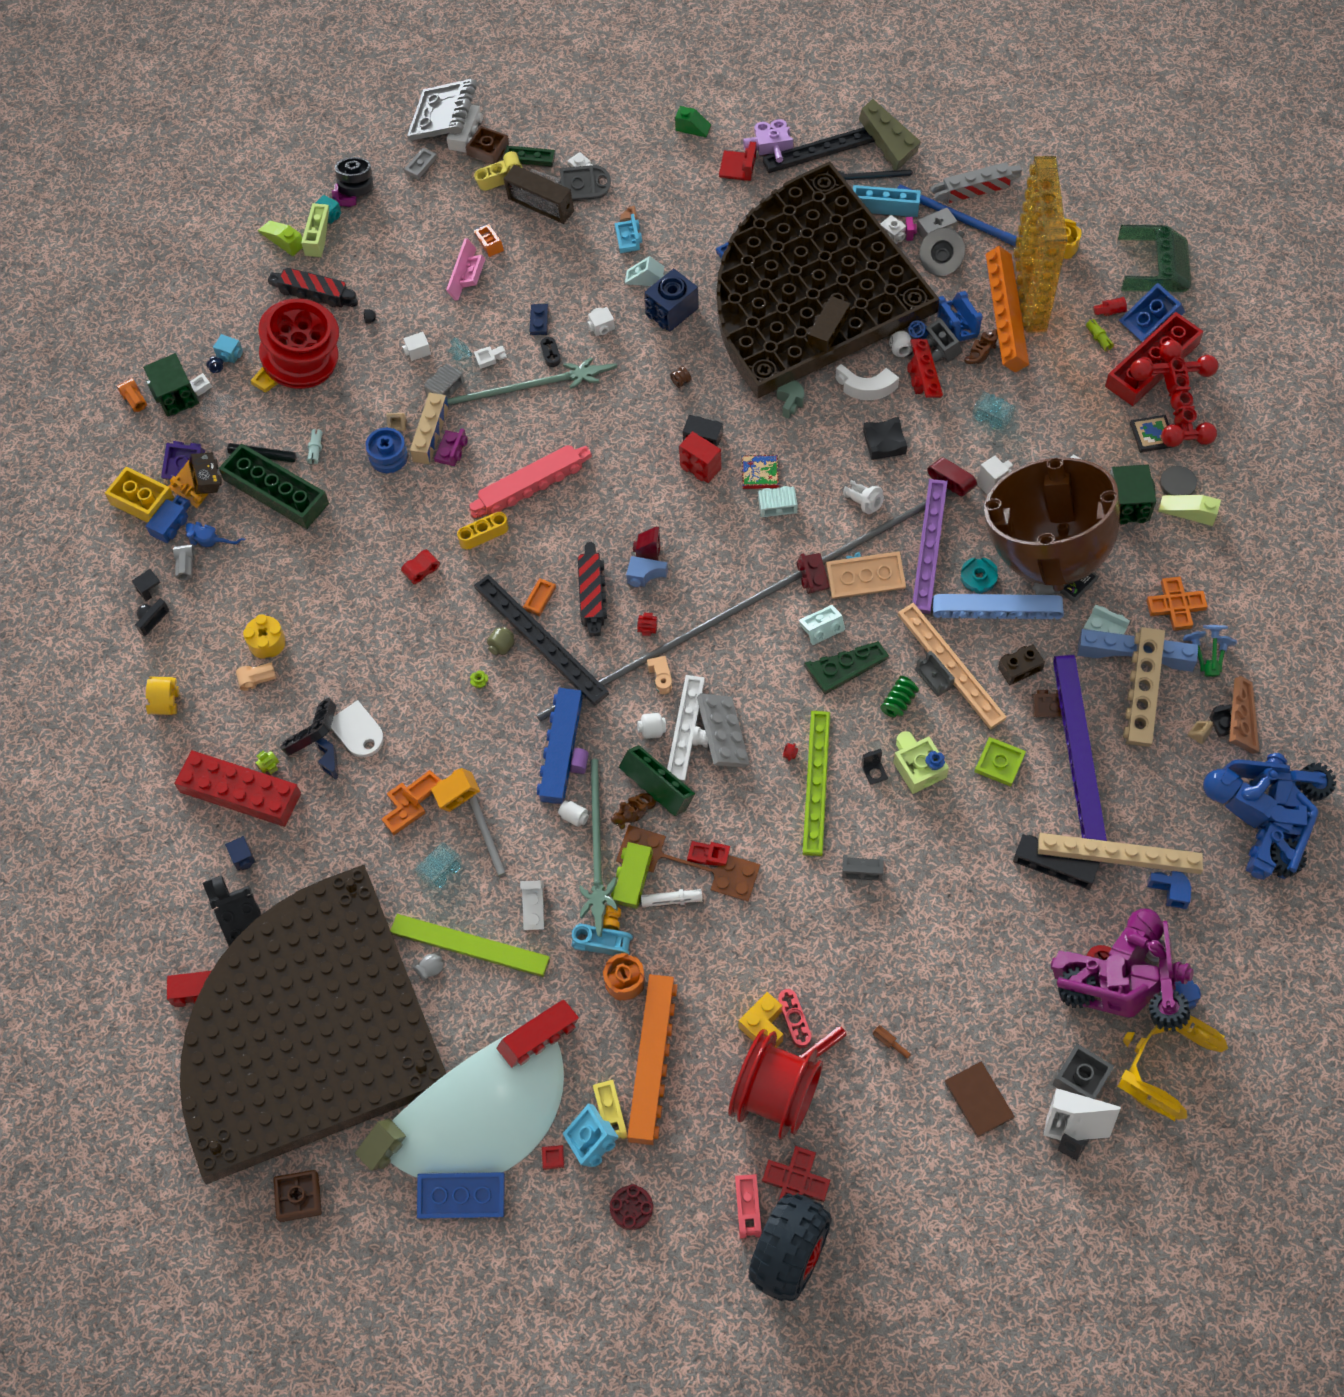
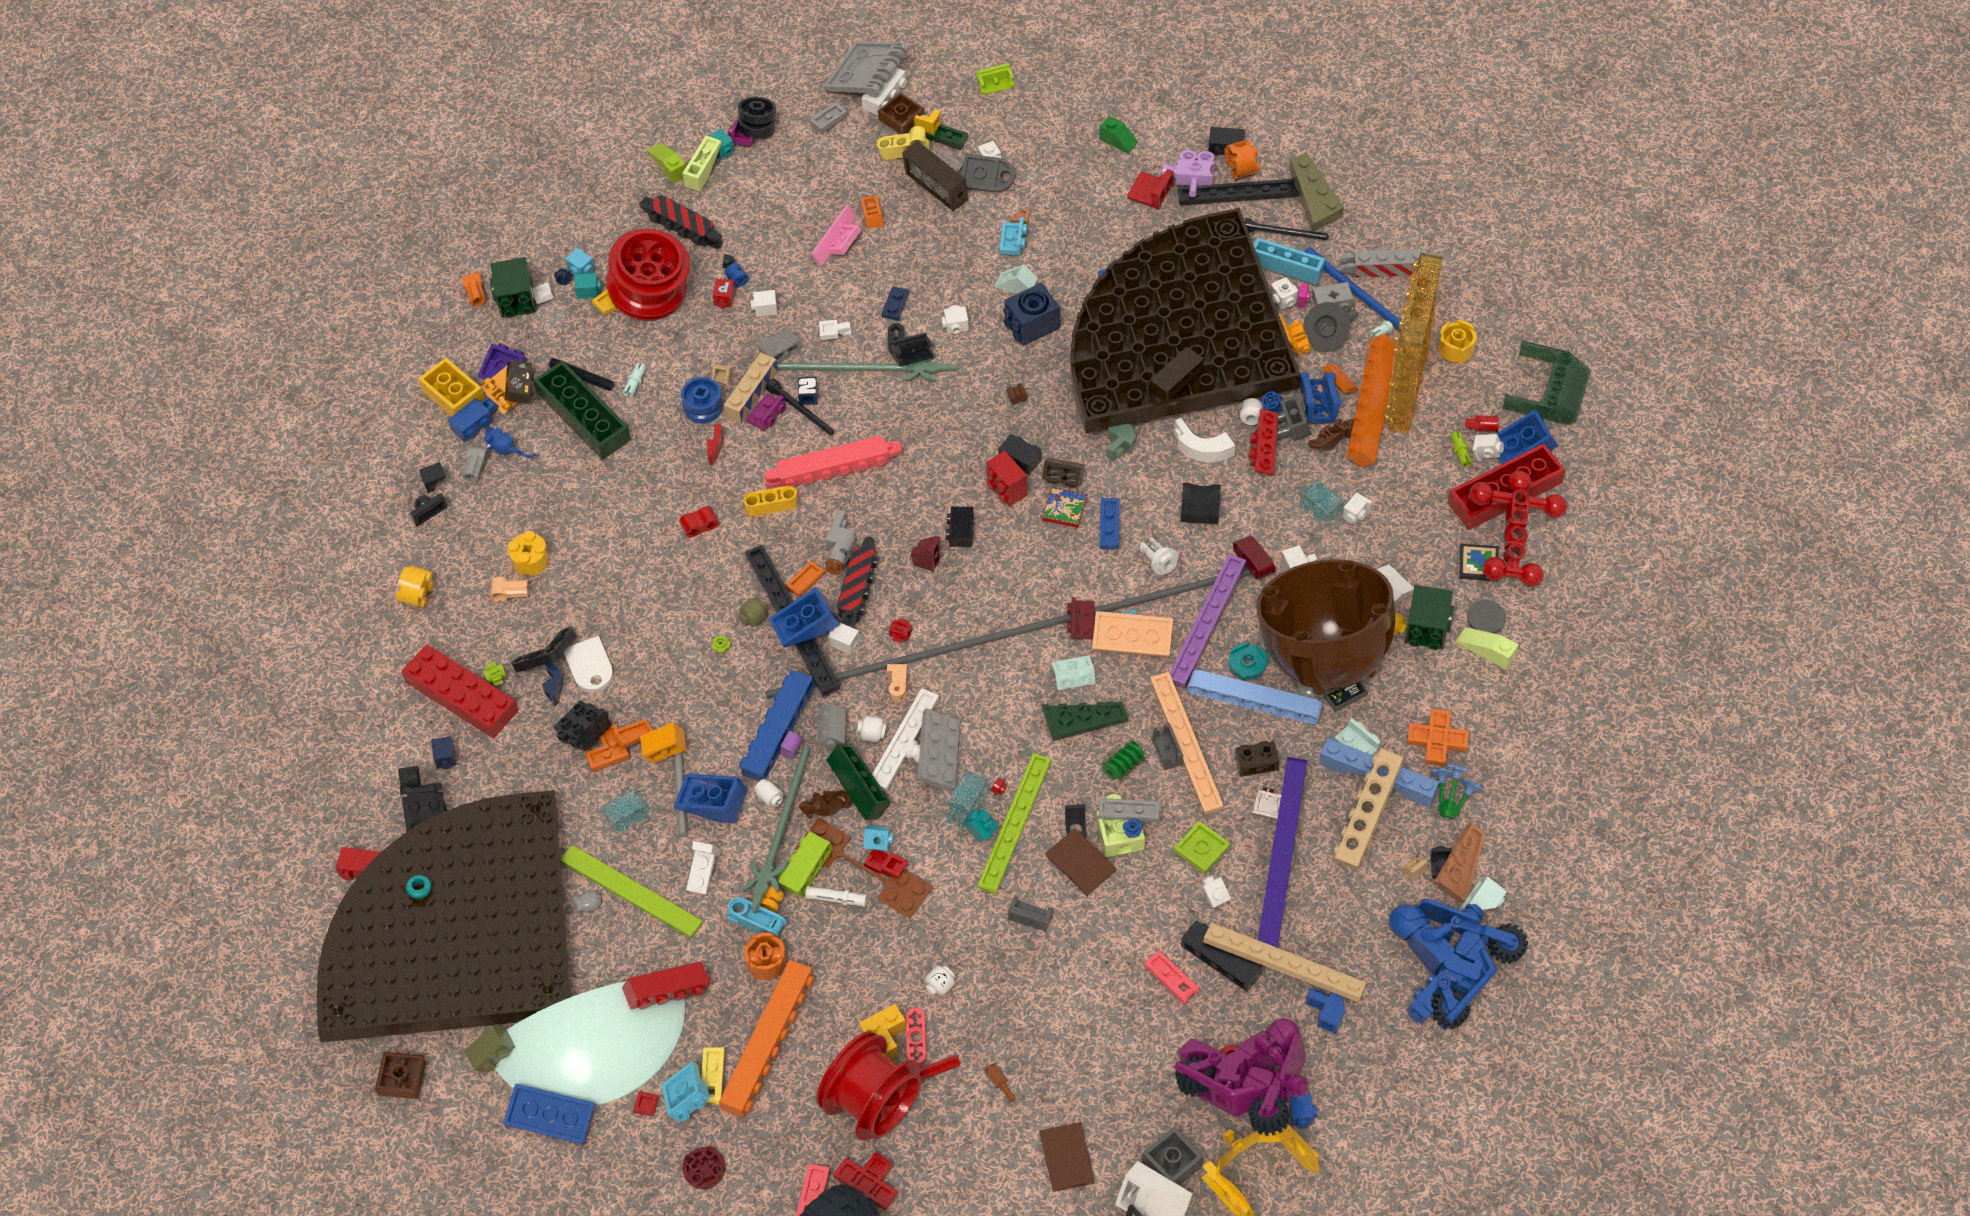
camera: 15 degrees right, 5 degrees down
(241, 368) = (587, 285): none -> teal brick
(263, 1006) = (418, 879): none -> teal piece
(371, 792) = (582, 725): none -> black brick
(374, 345) = (723, 293): none -> red brick
(381, 326) = (736, 273): none -> blue wheel
(412, 489) = (714, 446): none -> red slope
(451, 423) = (774, 387): none -> black piece
(460, 348) = (806, 315): clear light blue tile -> none
(484, 418) = (808, 390): none -> dark blue brick
(519, 147) = (930, 123): none -> yellow panel
(519, 831) = (711, 797): none -> blue slope
(554, 636) = (804, 619): none -> blue slope
(563, 96) = (995, 79): none -> lime hinge
(563, 556) = (840, 544): none -> light grey plate
(570, 358) = (912, 349): none -> black hinge
(595, 644) = (844, 638): none -> white brick
(612, 733) = (831, 726): none -> light grey brick
(643, 570) = (913, 577): medium blue arch -> none
(671, 512) = (961, 526): none -> black brick
(693, 830) = (878, 837): none -> medium azure brick
(749, 439) = (1063, 472): none -> dark brown brick
(764, 769) = (967, 796): none -> clear light blue hinge
(777, 501) = (1070, 541): light aqua brick -> none
(787, 793) = (980, 824): none -> teal brick
(792, 106) = (1221, 137): none -> black brick
(800, 956) = (939, 980): none -> white head
(807, 477) = (1109, 523): none -> blue plate
(813, 119) = (1242, 159): none -> orange brick
(892, 804) = (1080, 862): none -> reddish brown tile
(920, 265) = (1296, 336): none -> light orange hinge
(925, 743) = (1125, 809): none -> light grey tile
(974, 298) = (1341, 379): none -> orange tile
(992, 241) = (1385, 327): none -> light aqua pin
(1016, 894) = (1171, 977): none -> coral plate
(1026, 800) = (1214, 890): none -> white bracket
(1028, 410) = (1356, 509): none -> white brick
(1124, 326) = (1487, 446): none -> white brick
(1275, 740) = (1485, 894): none -> light aqua slope

